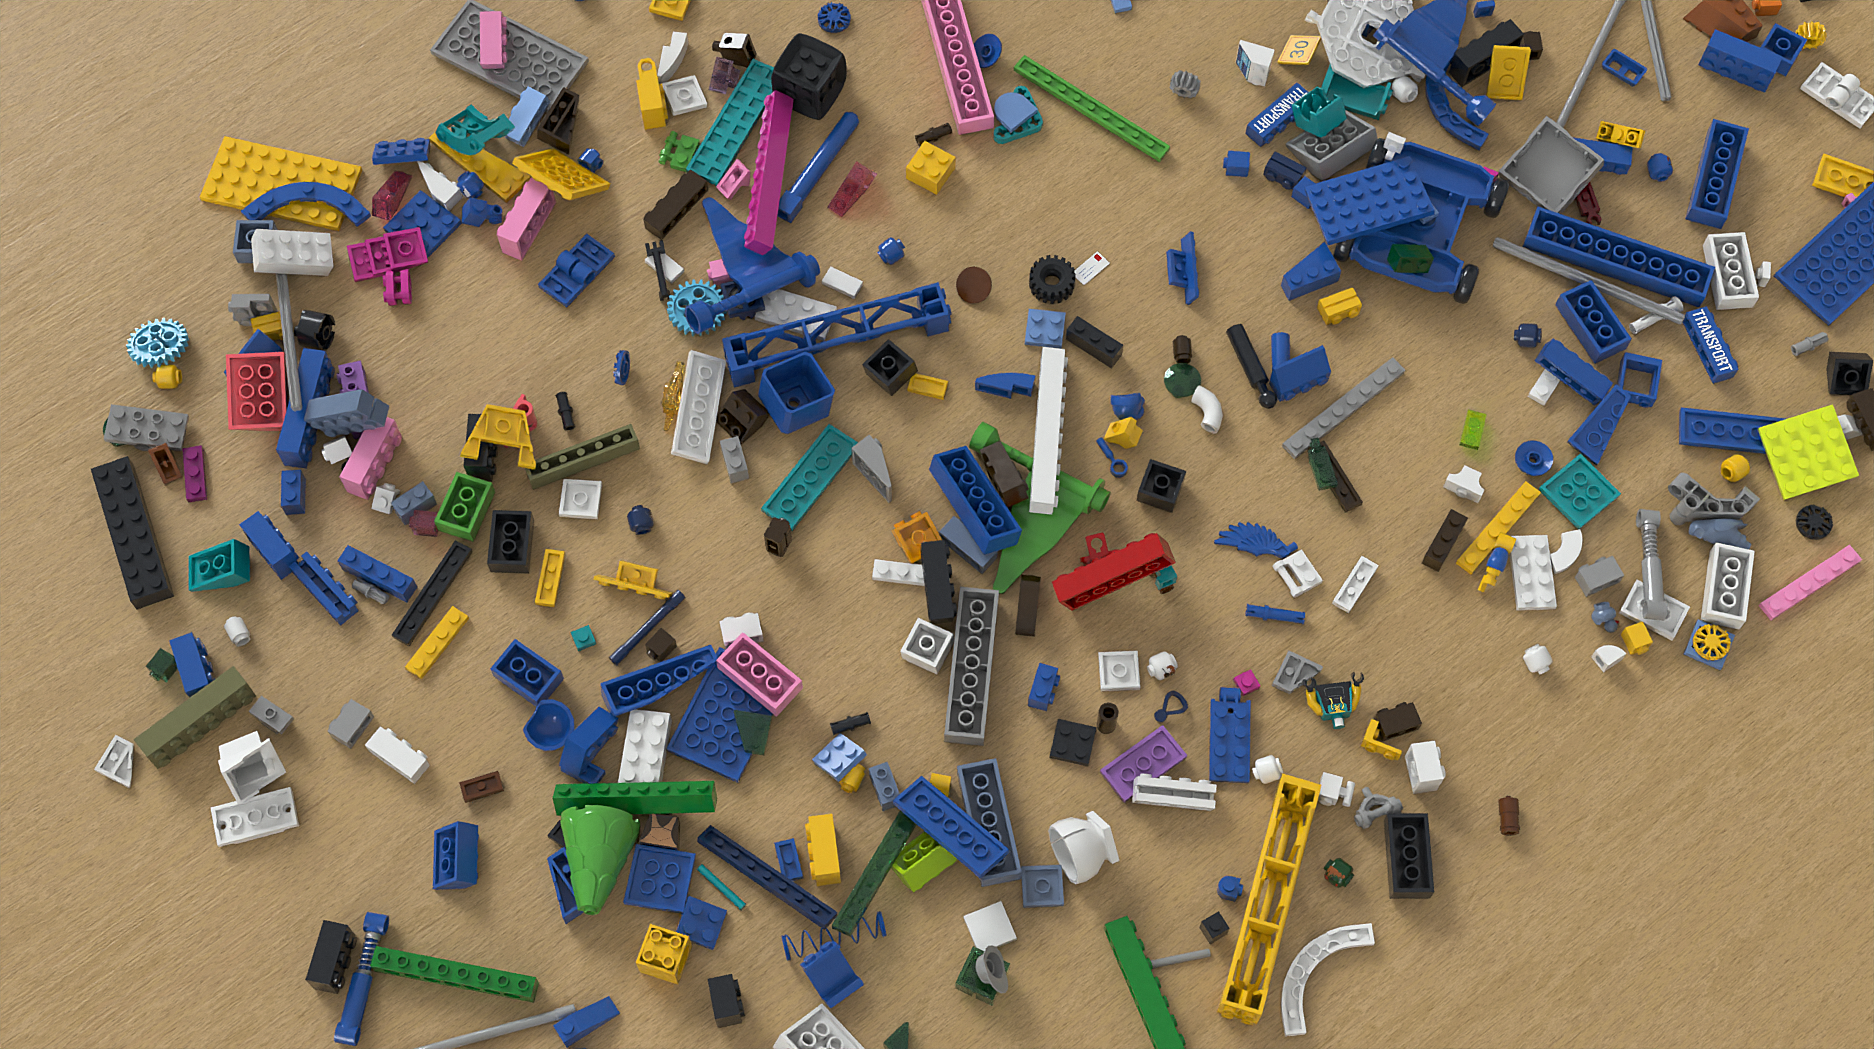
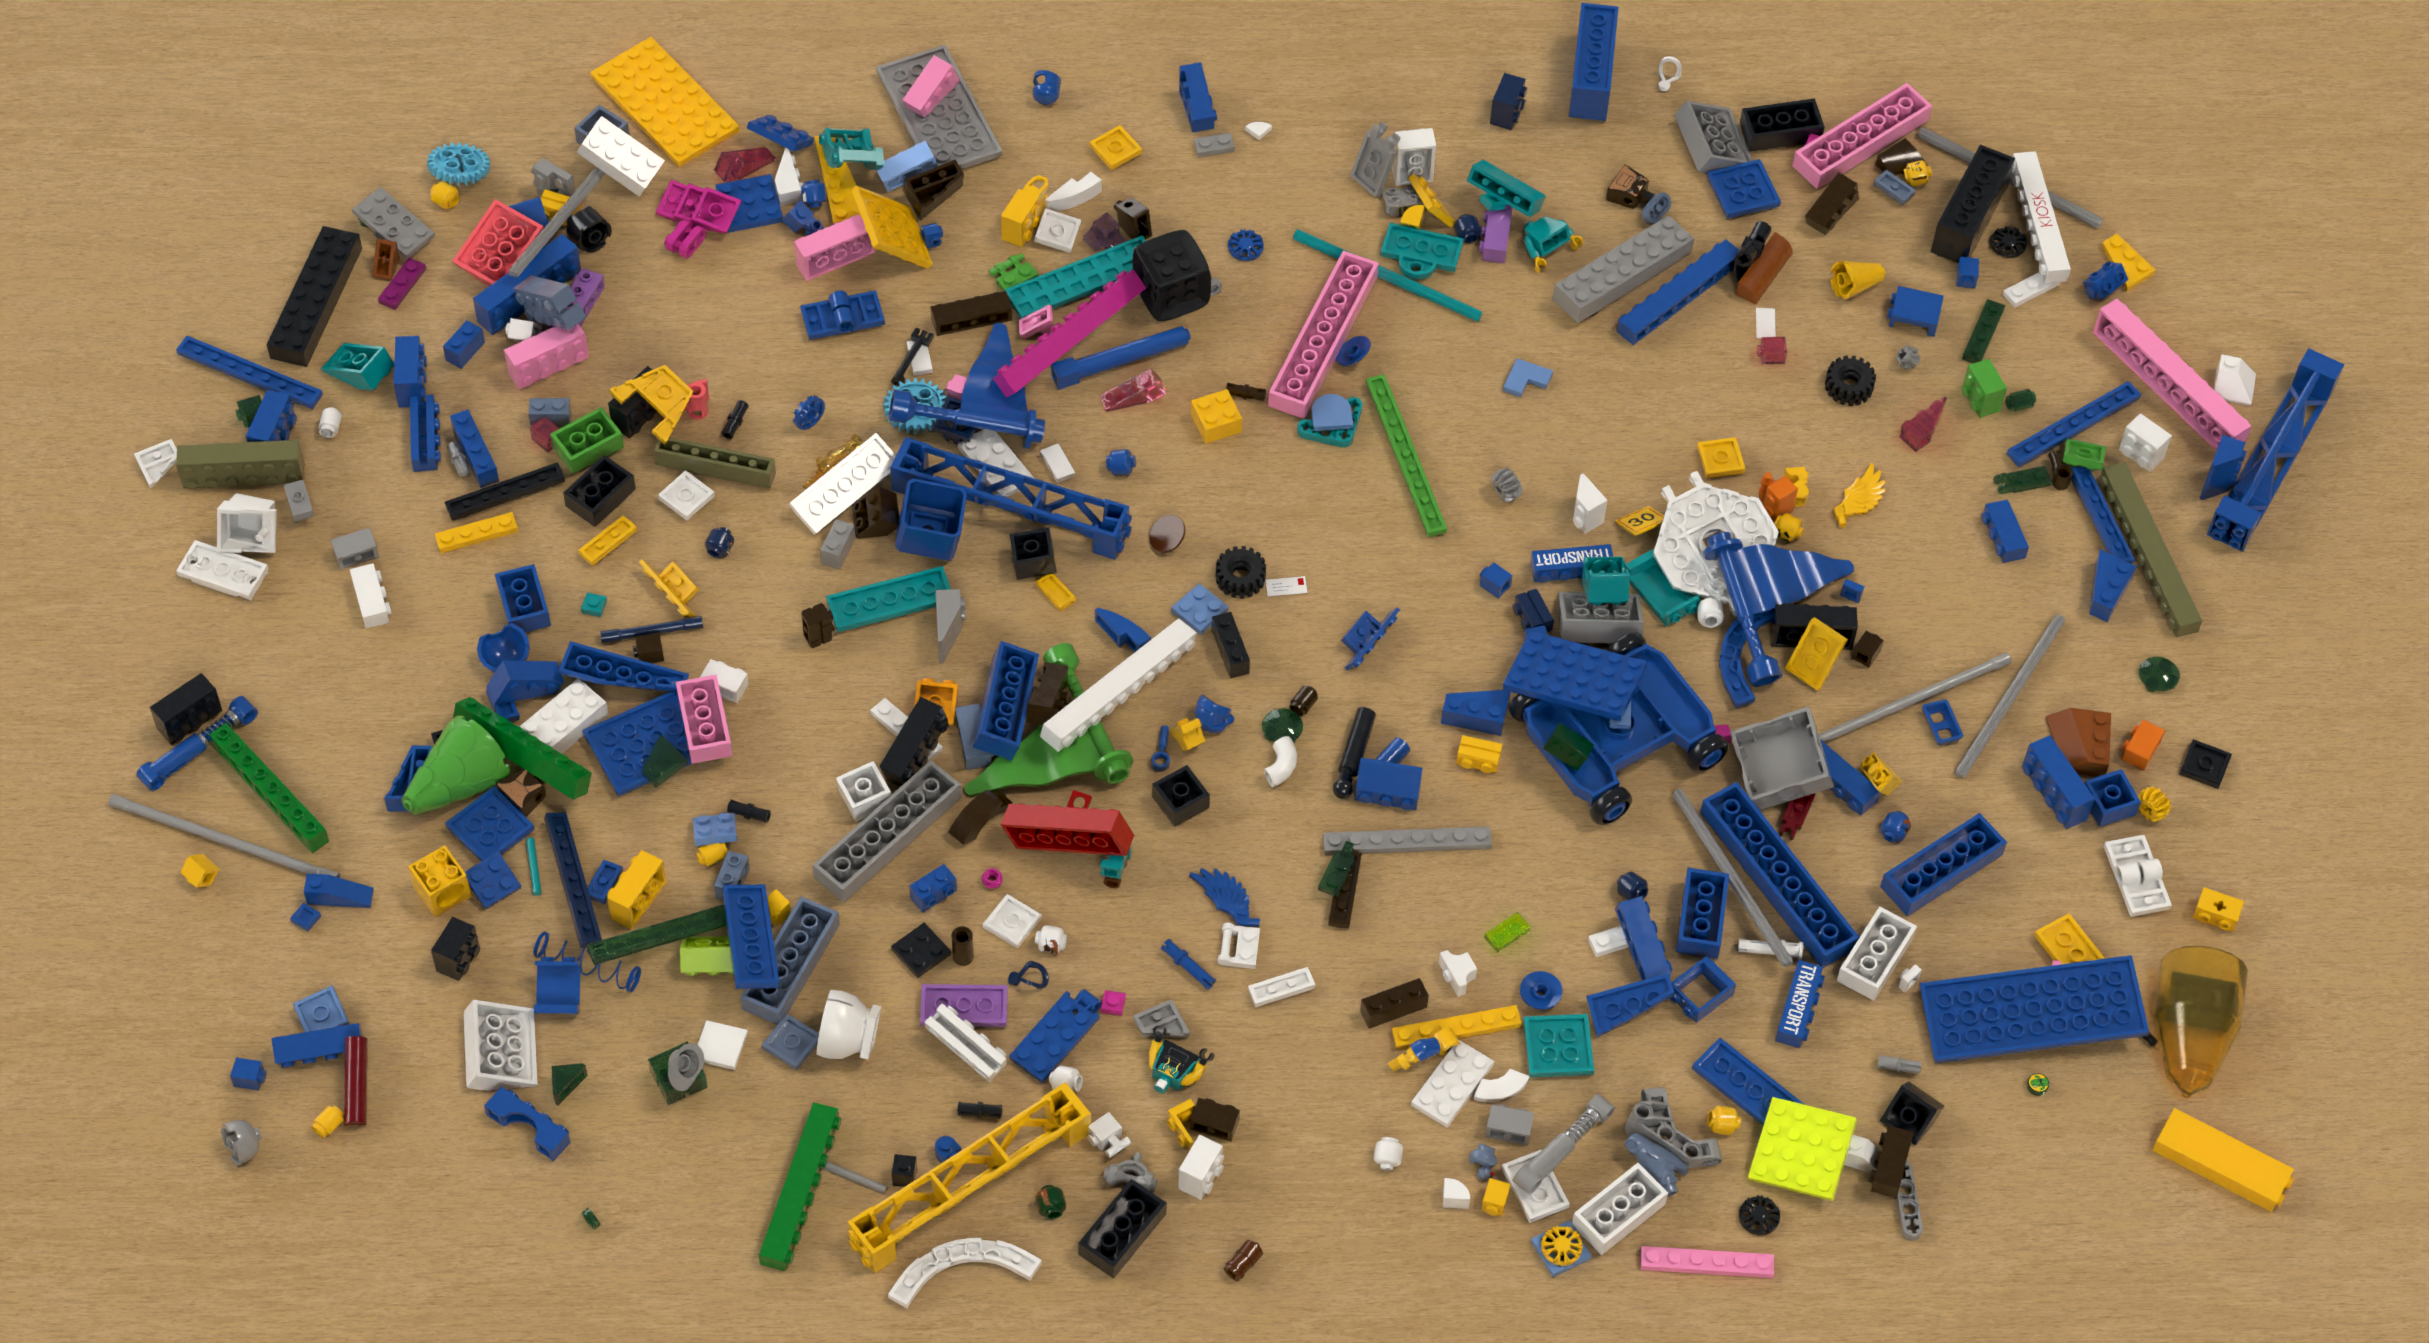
camera: 35 degrees right, 10 degrees down
(130, 633) = (248, 371): none -> blue plate
(307, 192) = (673, 117): blue plate -> none
(383, 497) = (531, 390): white bracket -> none
(455, 856) = (348, 701): blue slope -> none
(481, 786) = (413, 663): reddish brown plate -> none
(1077, 642) = (992, 873): none -> dark pink plate
(1225, 838) = (979, 1110): none -> black pin
(1394, 144) = (1636, 640): white plate -> none

